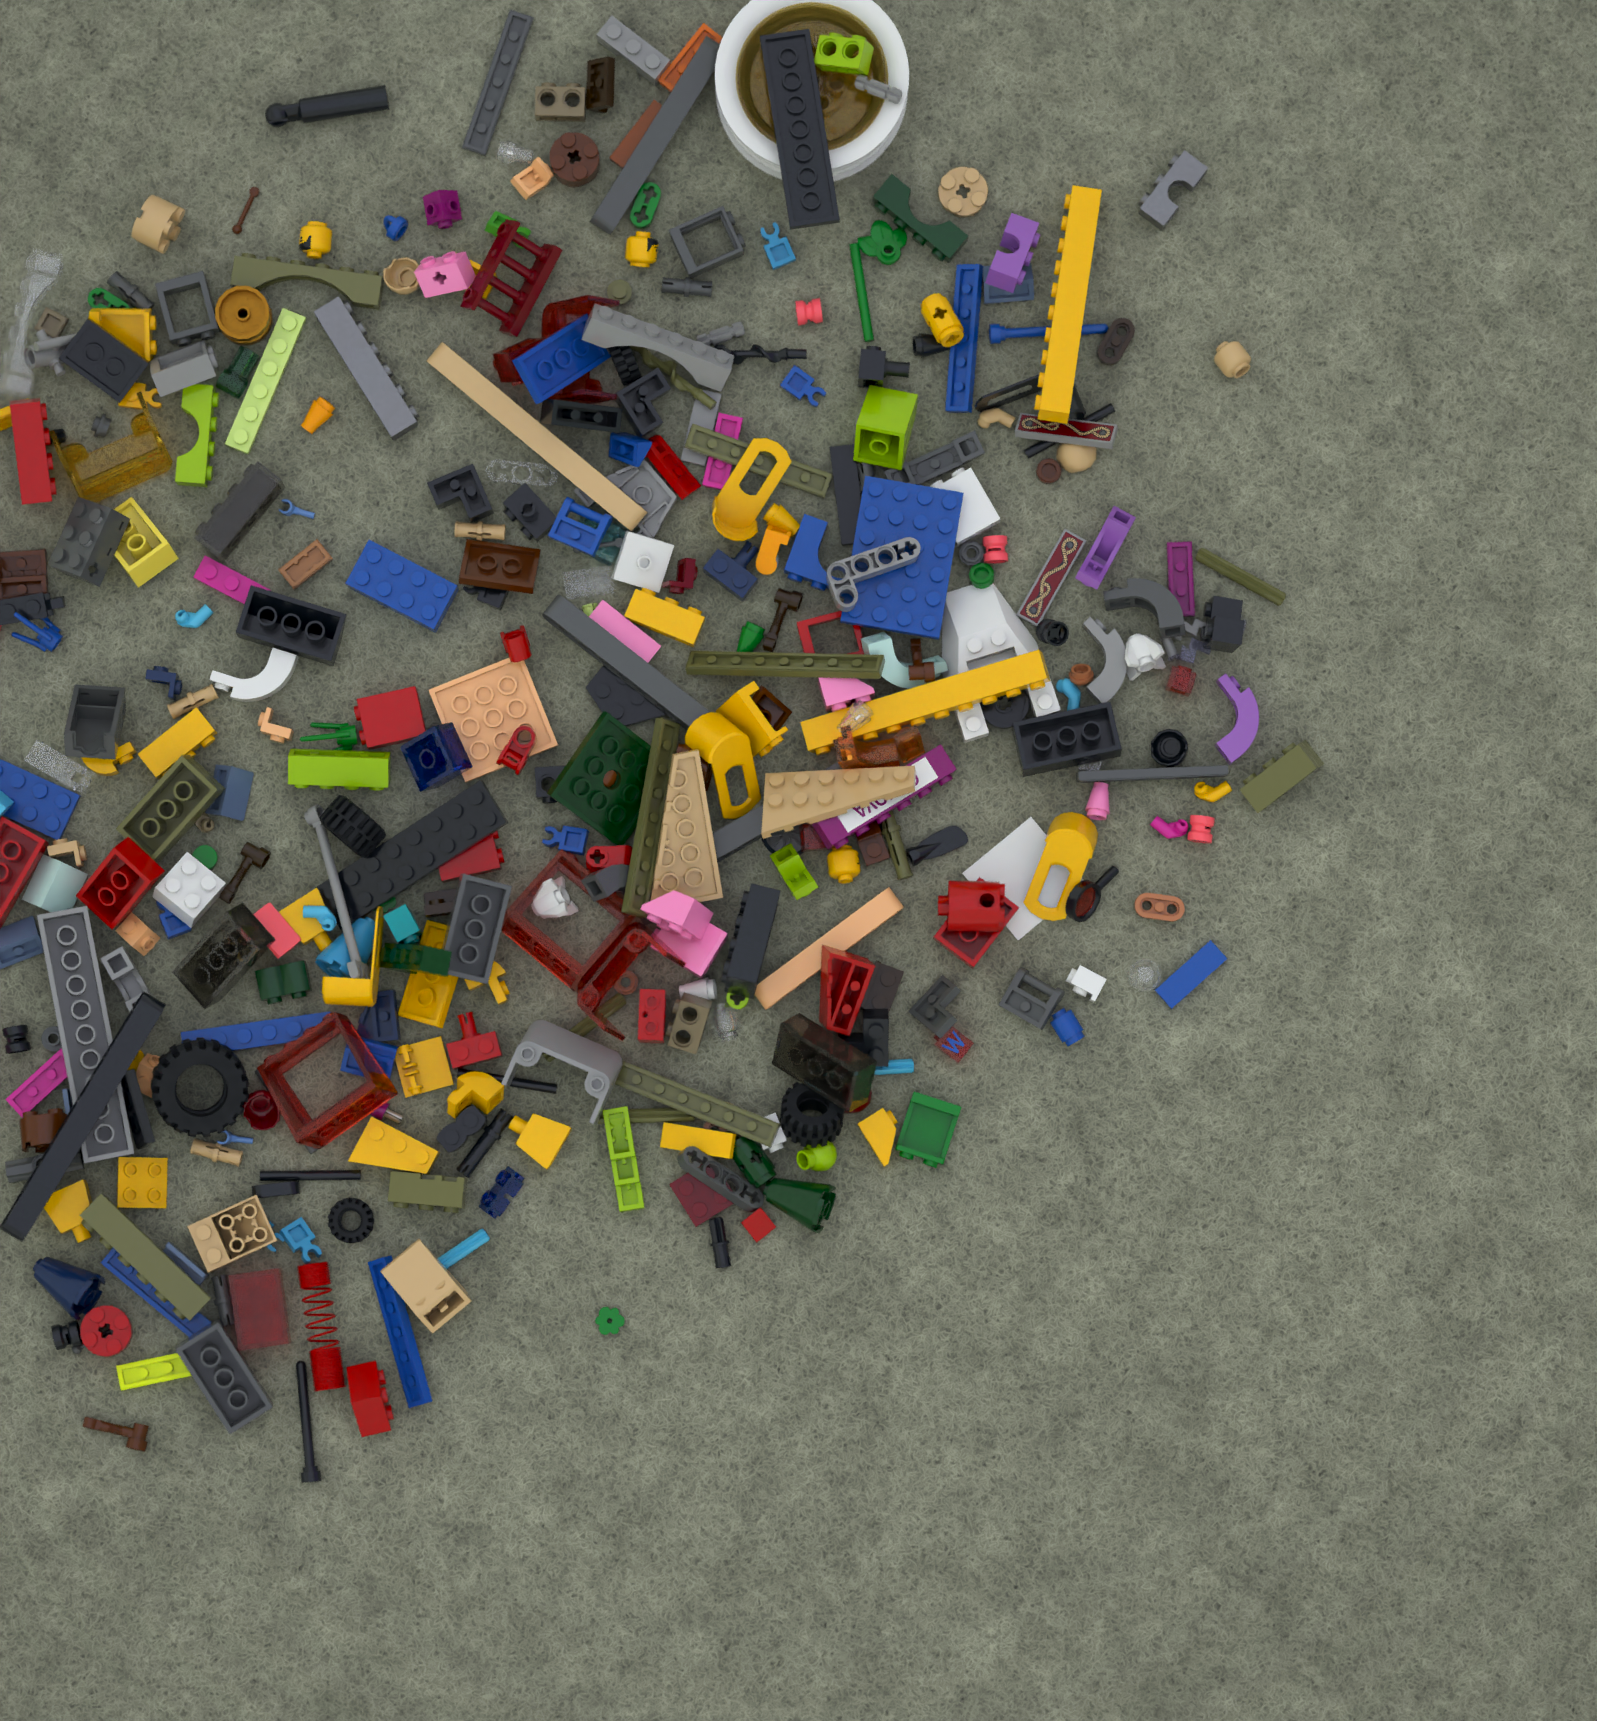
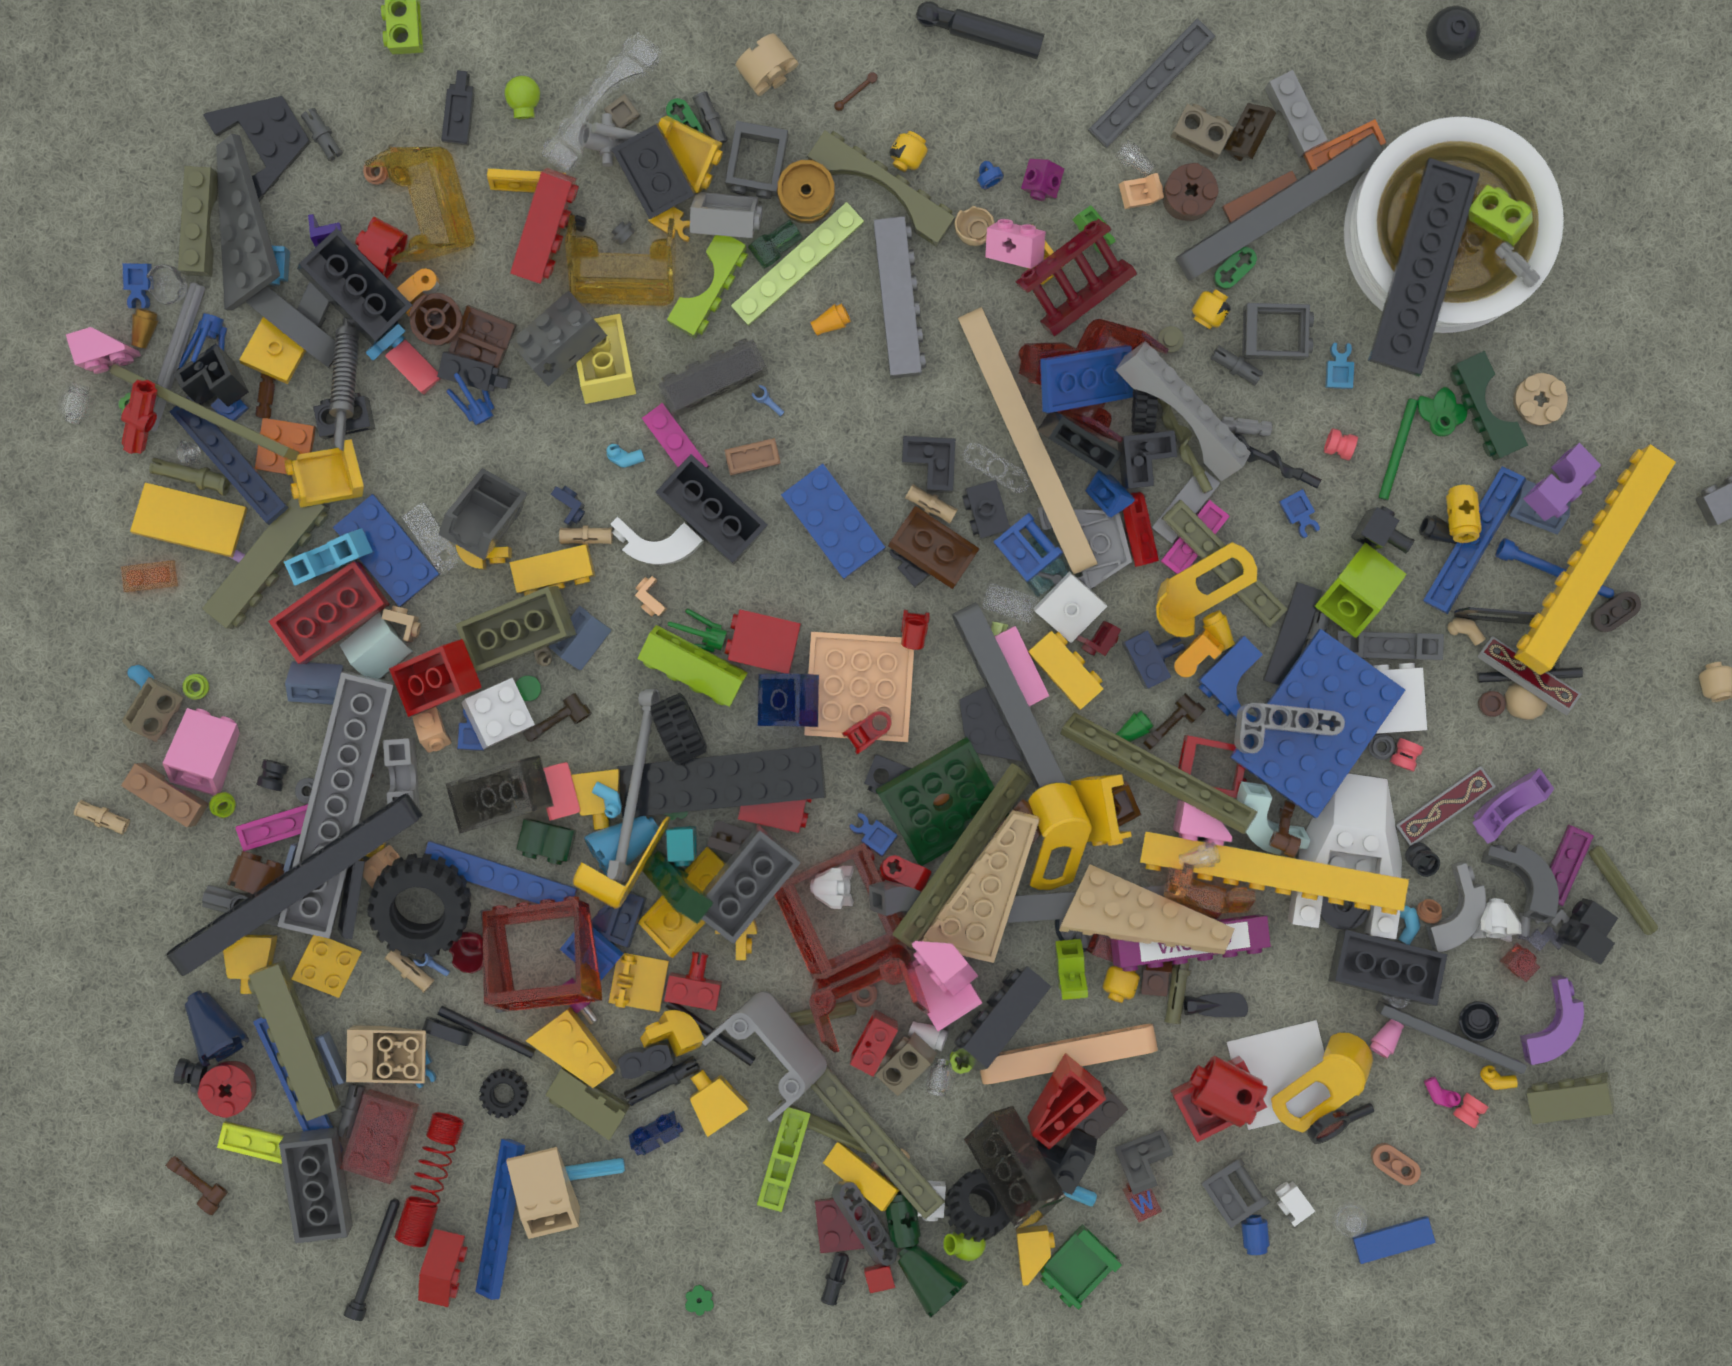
camera: 25 degrees right, 5 degrees up
(300, 1237) = (448, 1085): dark azure plate -> none
(981, 575) = (1381, 772): green tile -> none

